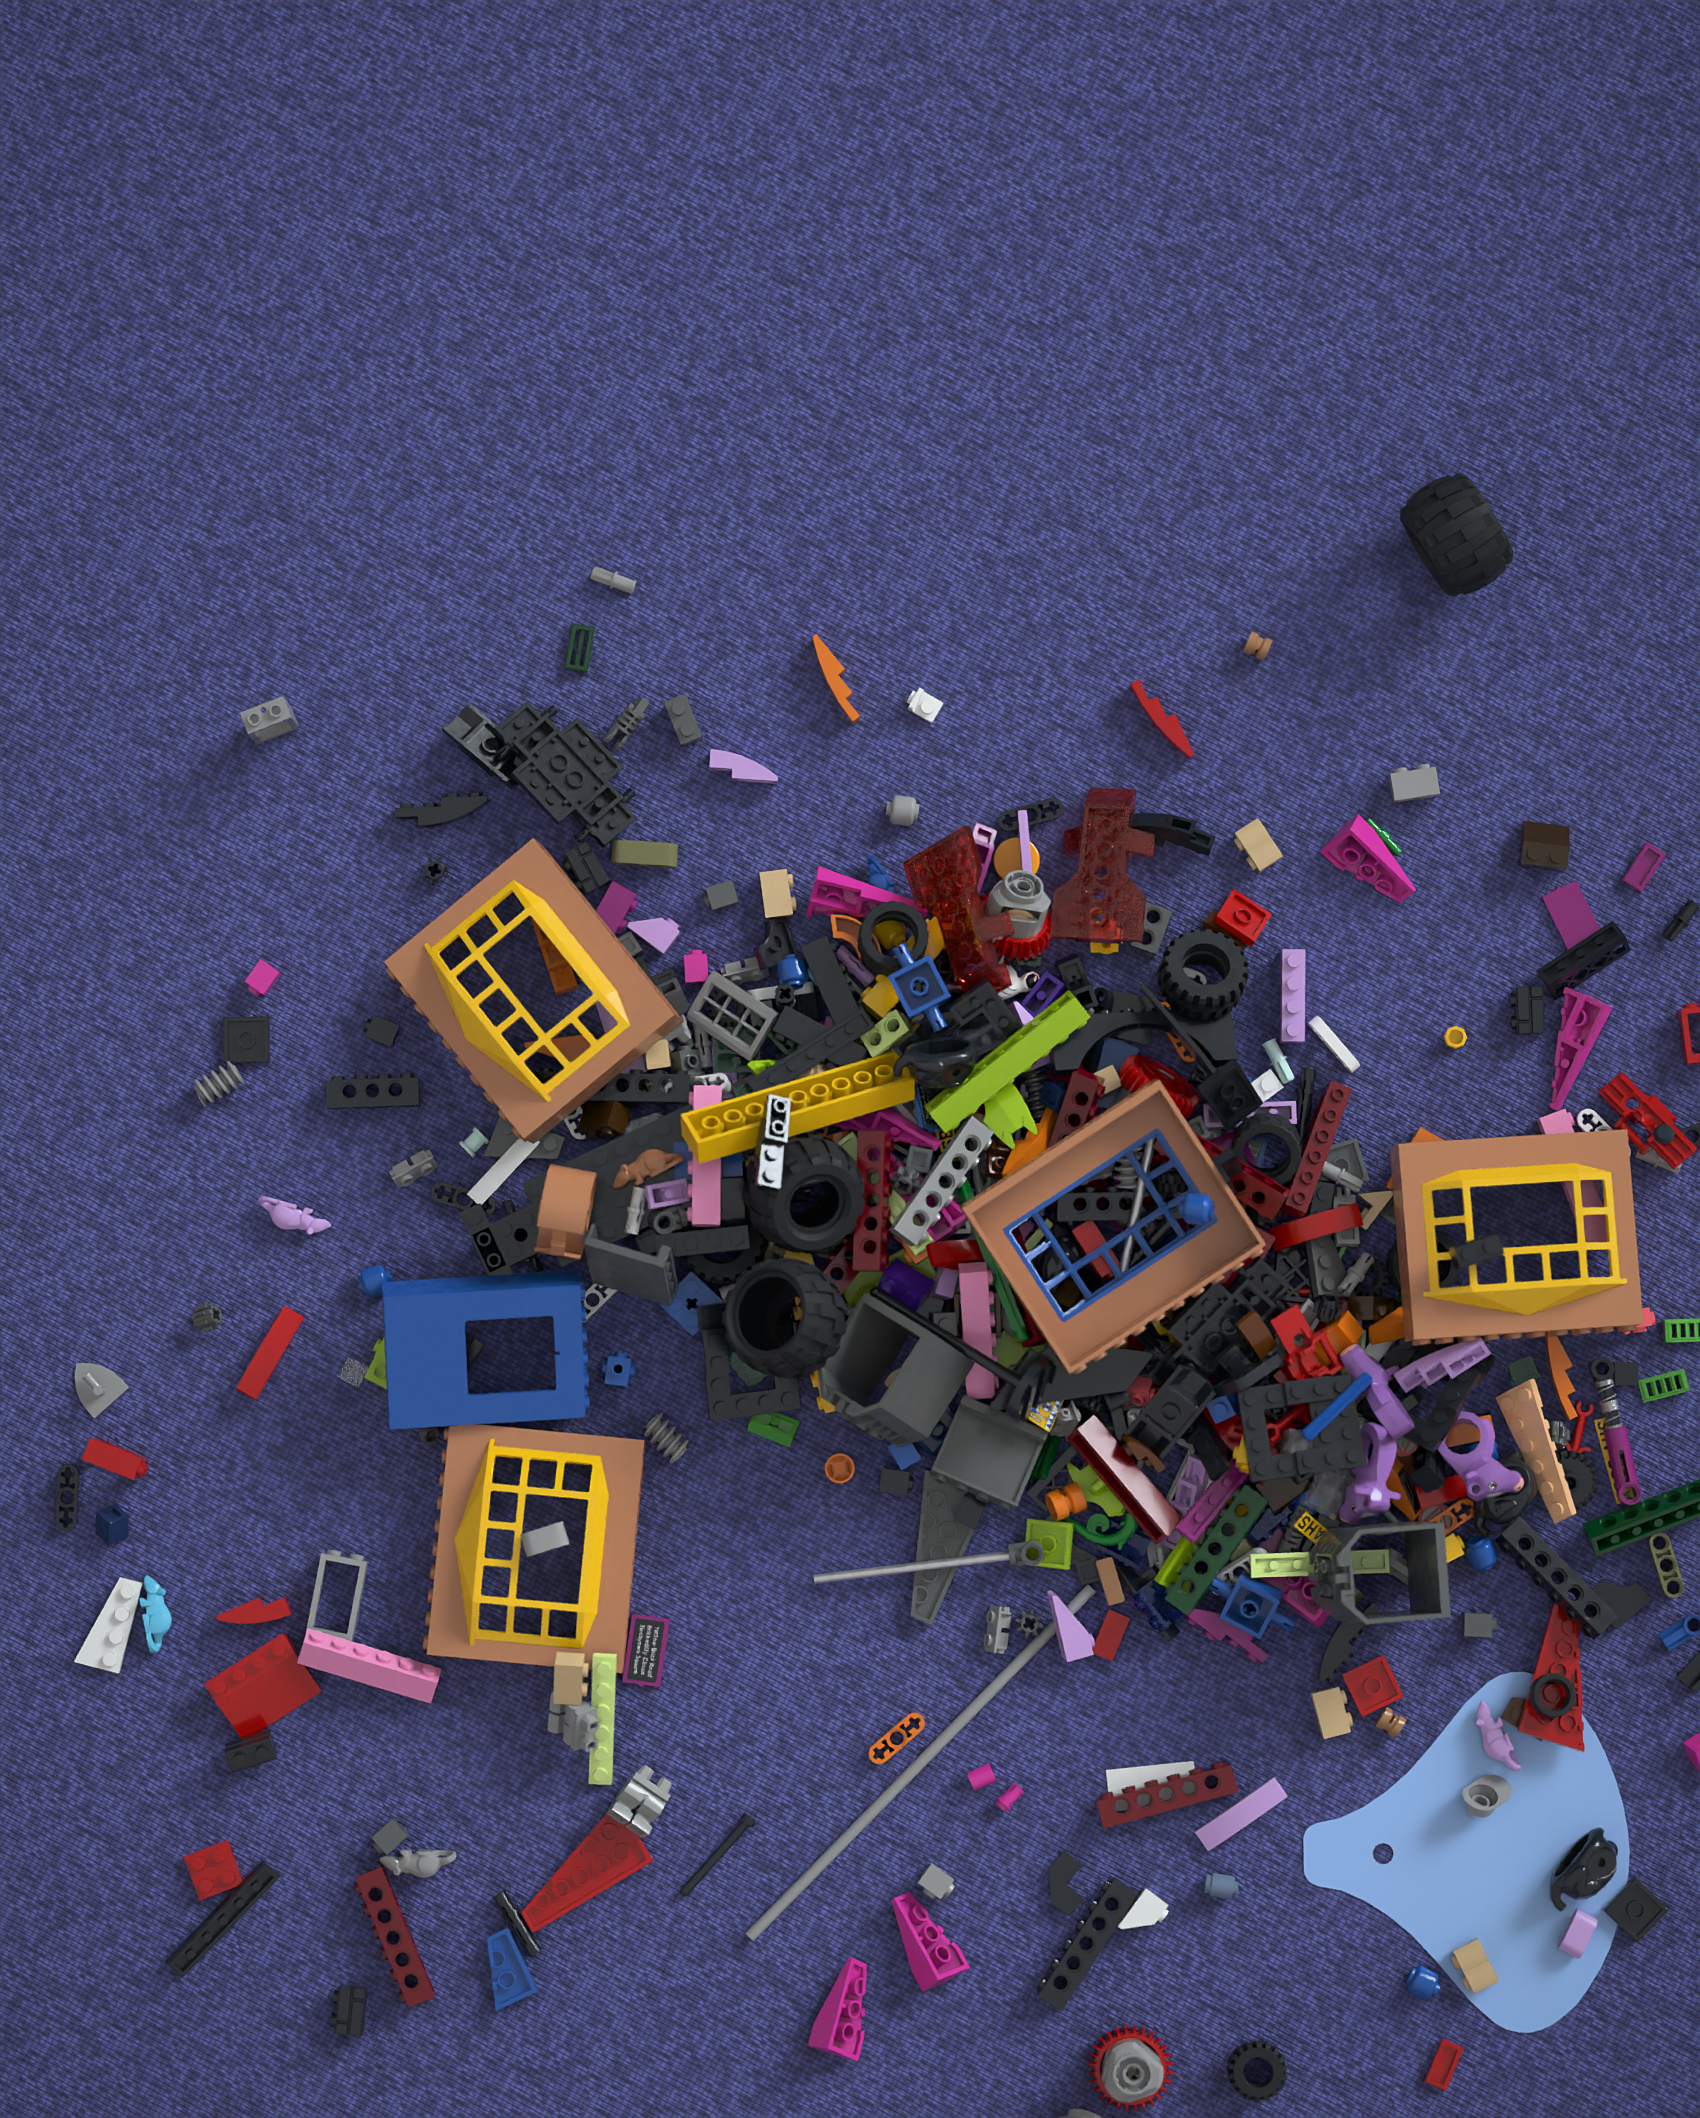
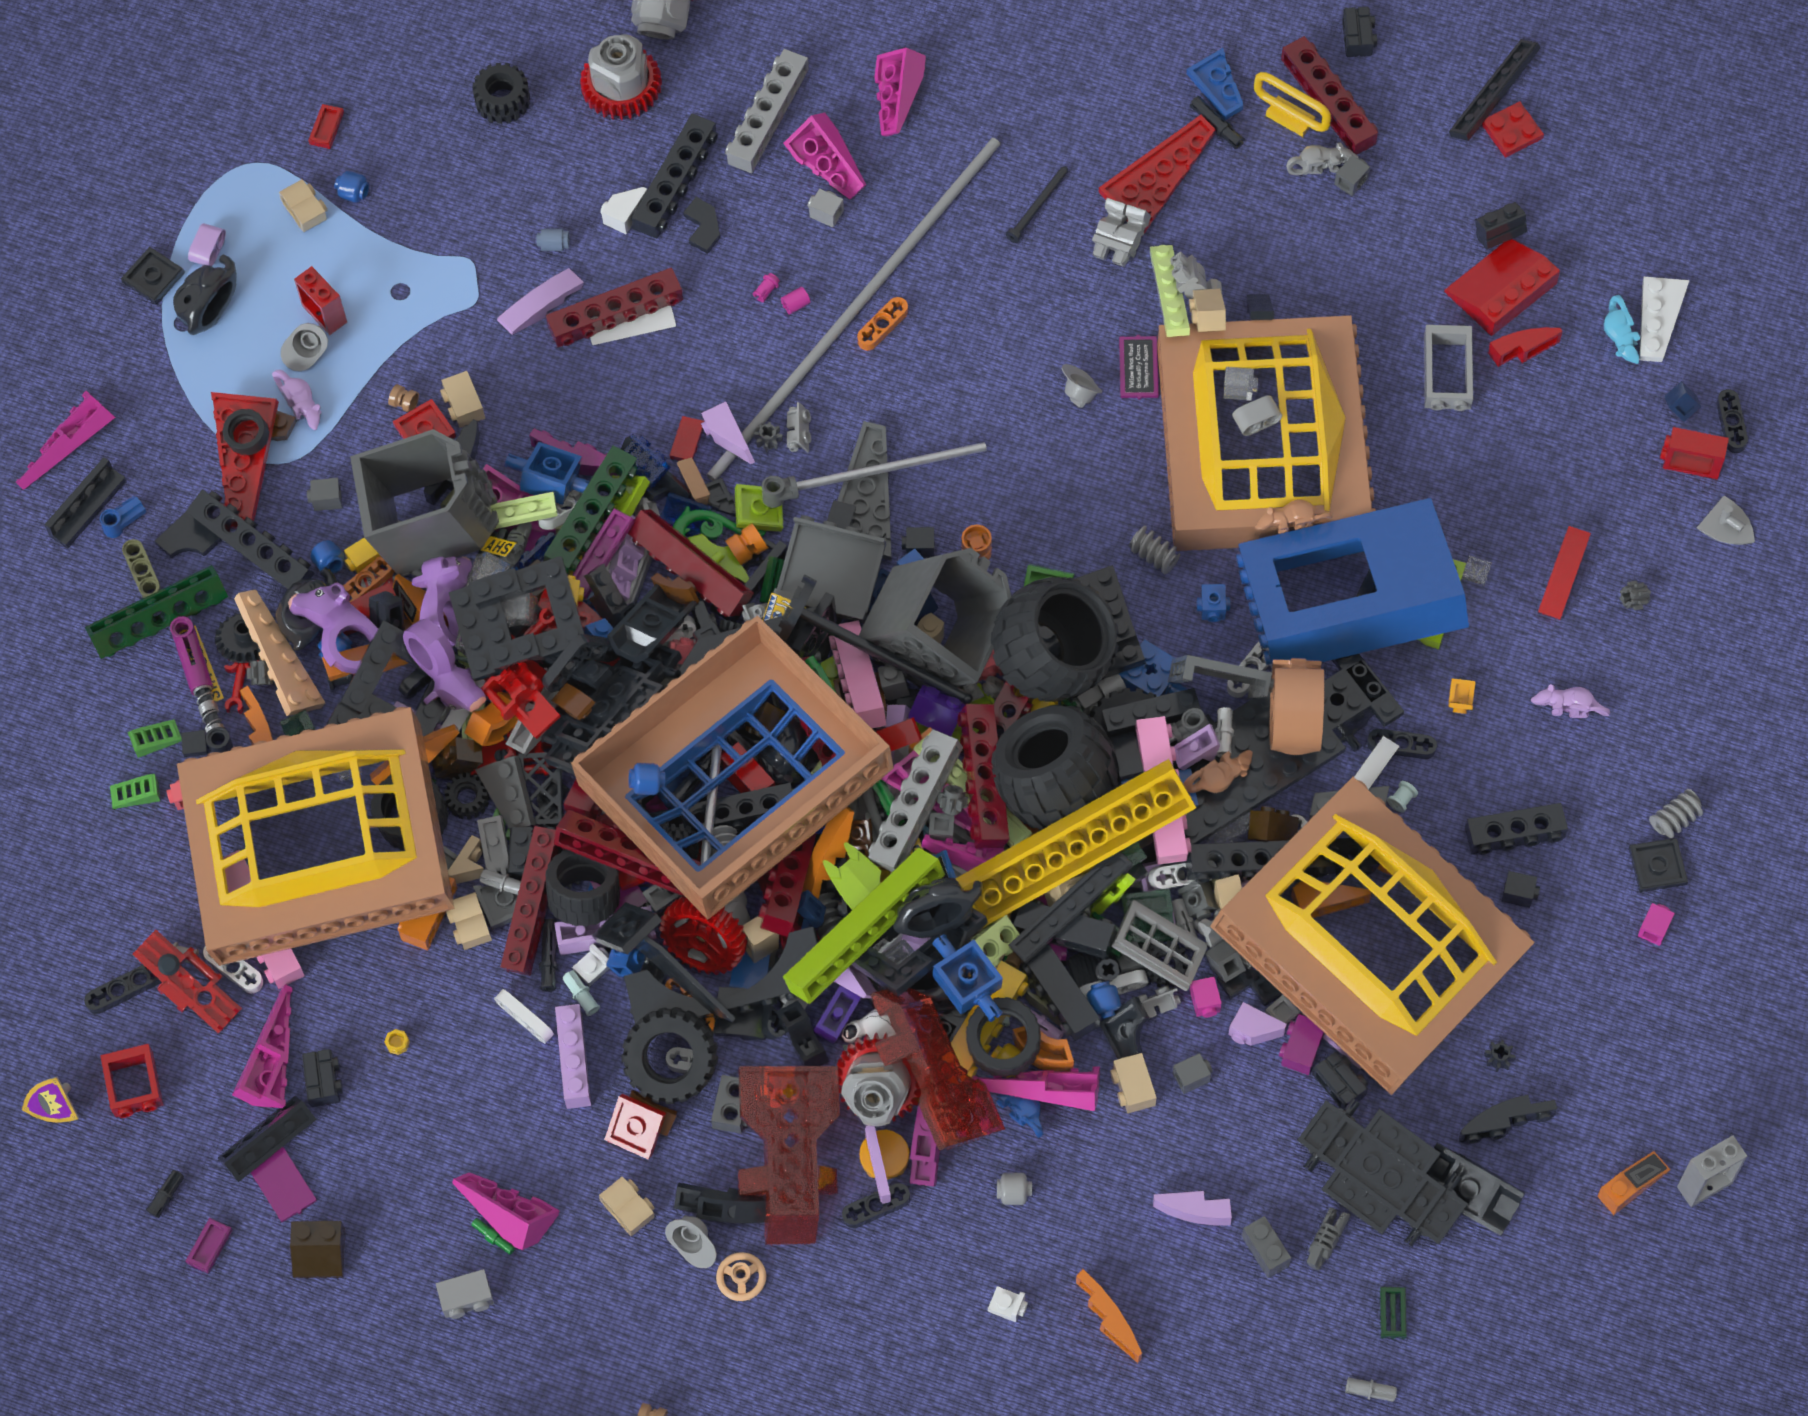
camera: 175 degrees right, 20 degrees down
(338, 735) = (1632, 1182): none -> orange slope
(369, 1665) = (1405, 308): bright pink brick -> none
(371, 1280) = (1474, 653): blue head -> none
(397, 1237) = (1461, 695): none -> light orange bracket
(423, 1164) = (1451, 769): light grey hinge -> none
(439, 1922) = (1288, 113): none -> yellow bar
(514, 1688) = (1260, 307): none -> black tile
(522, 1434) = (1295, 514): none -> nougat animal
(555, 1577) = (1239, 383): none -> clear brick
(644, 853) = (1281, 1105): olive beam -> none
(708, 1634) = (1079, 385): none -> light grey piece
(771, 1142) = (1098, 782): slope -> none
(957, 2063) = (748, 156): none -> light grey brick
(1162, 749) = (737, 1268): none -> light nougat piece
(1167, 726) = (741, 1318): red slope -> none
(1202, 804) = (691, 1241): none -> light grey piece
(1228, 1166) = (623, 828): black panel -> none
(1316, 1226) = (519, 826): red slope -> none
(1327, 1308) = (503, 743): black gear -> none
(1337, 1406) = (483, 638): blue axle -> none
(1355, 1274) = (477, 786): light grey pin -> none
(1375, 1145) = (469, 922): none -> tan brick
(1450, 1360) = (384, 703): lavender slope -> none
(1465, 1840) = (318, 296): none -> red window
(1476, 1251) = (353, 786): black brick -> none

